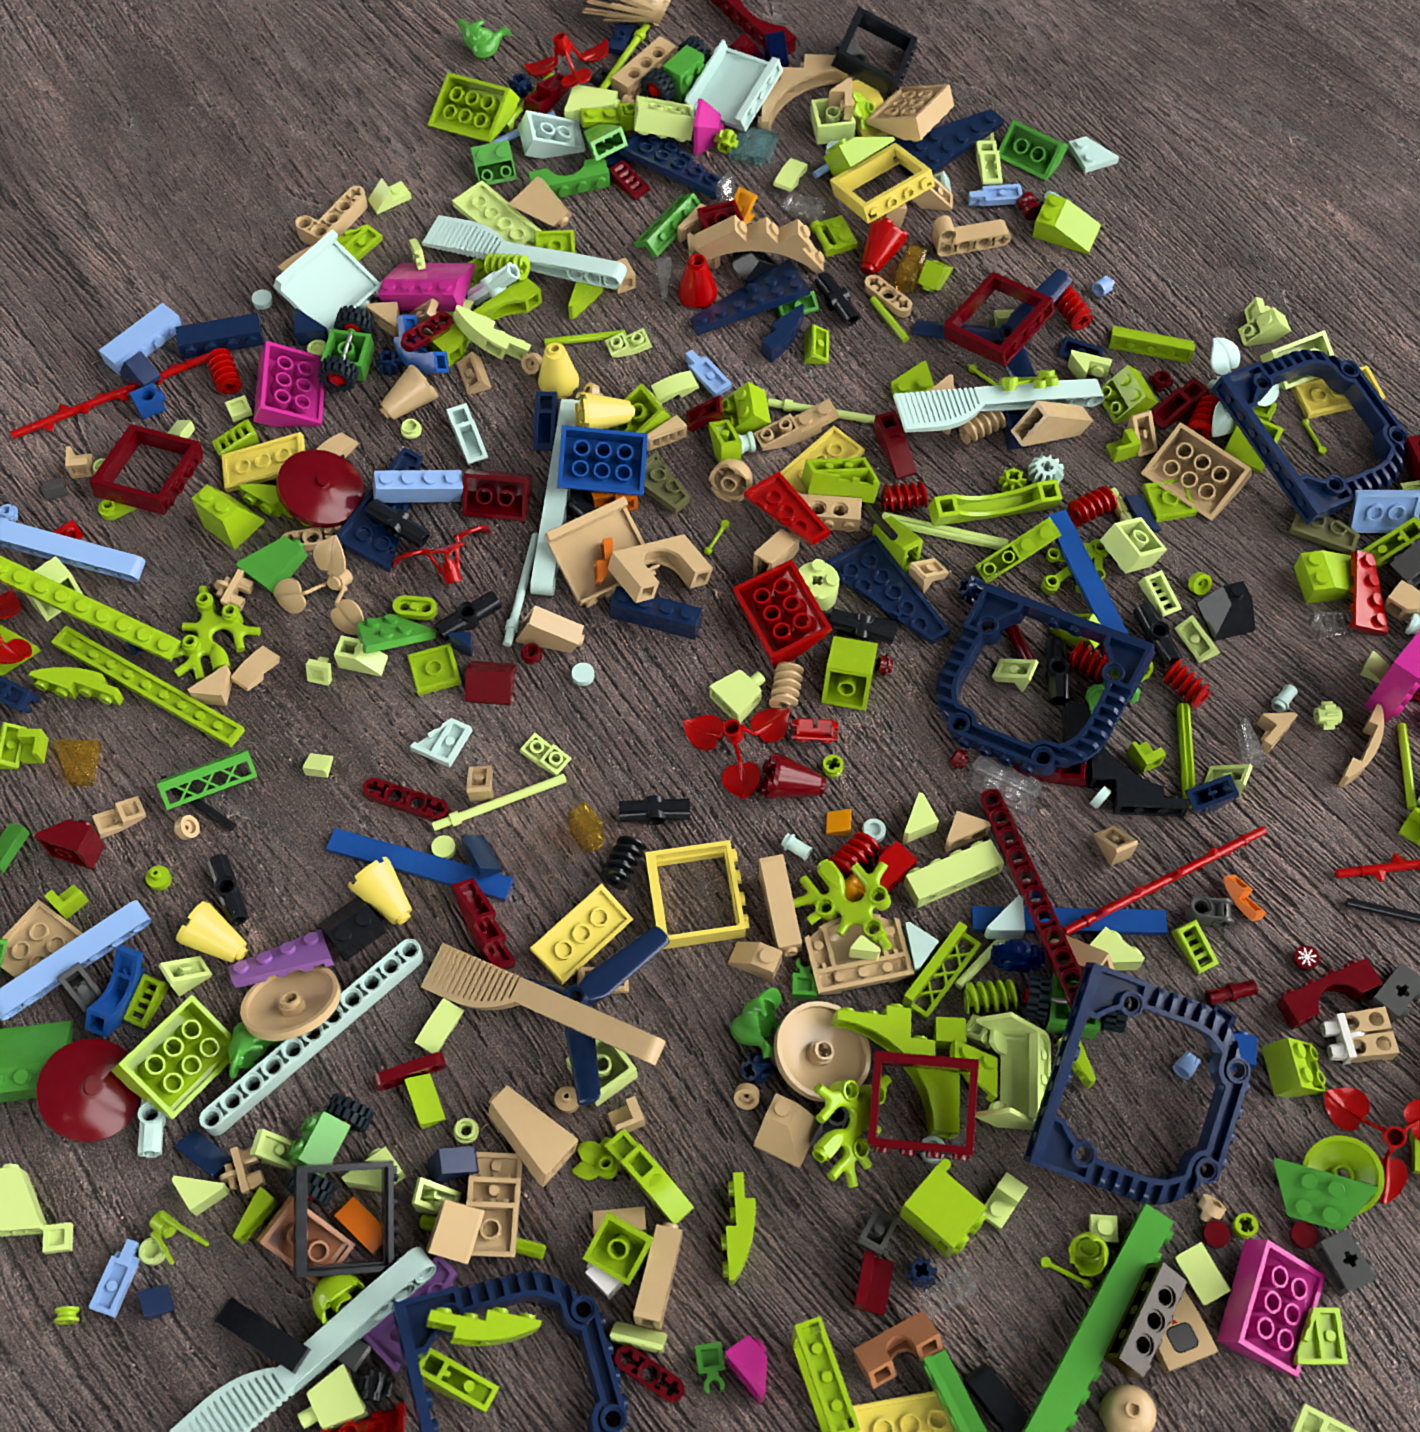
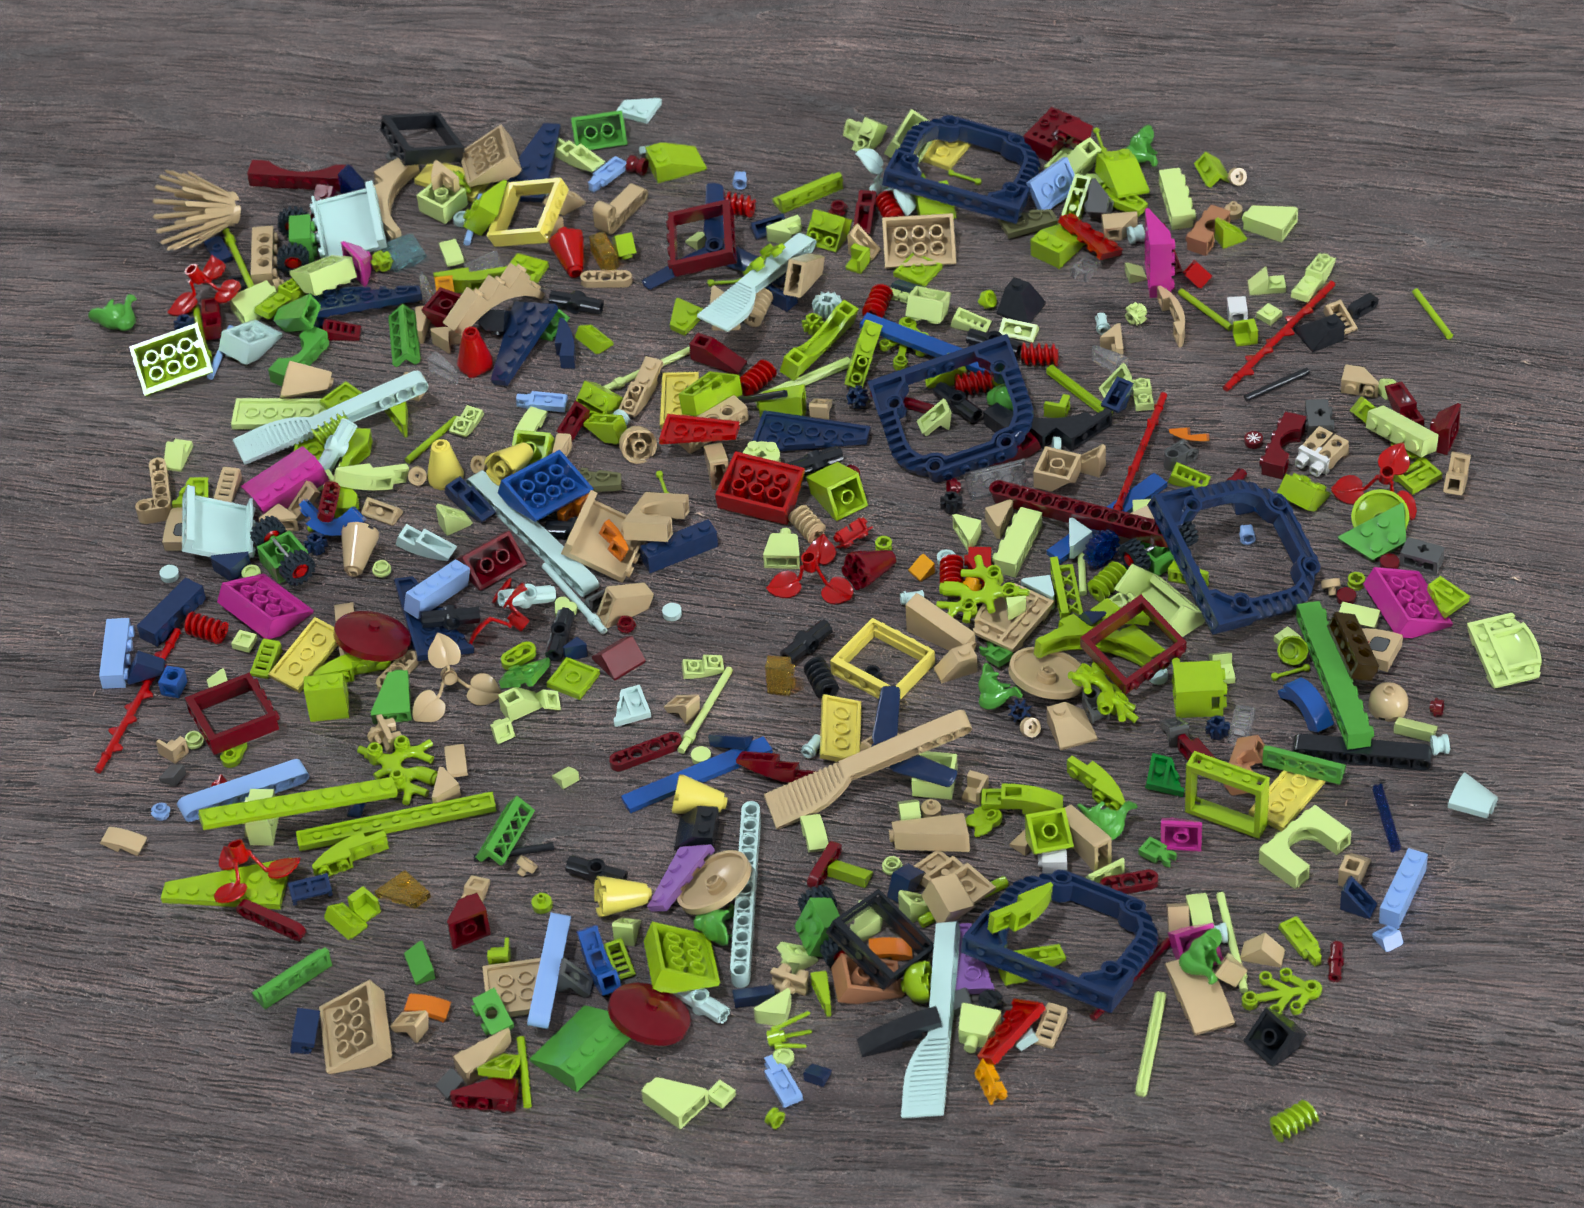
camera: 40 degrees left, 15 degrees down
(387, 675) = (549, 699): none -> yellowish green slope
(398, 247) = (228, 475): none -> tan slope
(418, 256) = (254, 471): yellowish green tile -> none
(491, 560) = (531, 596): none -> light aqua piece
(493, 162) = (229, 382): bright green slope -> none
(505, 591) = (564, 602): none -> yellowish green tile
(512, 427) = (452, 519): none -> yellowish green slope
(526, 606) = (593, 602): none -> dark grey slope
(539, 928) = (809, 749): none -> light aqua pin
(543, 1085) = (909, 809): none -> yellowish green slope
(669, 895) = (874, 671): none -> black plate
(697, 1278) = (1108, 820): none -> bright green piece
(771, 206) = (463, 278): none -> lime slope
(811, 1278) = (1163, 776): none -> green wing
(889, 319) = (623, 291): lime bar -> none
(922, 1028) = (1091, 617): none -> dark blue slope
(937, 775) = (951, 502): none -> black gear
(1036, 1336) = (1309, 702): none -> blue arch
(1069, 826) = (1056, 469): none -> tan slope
(1245, 810) = (1142, 394): none -> yellowish green slope

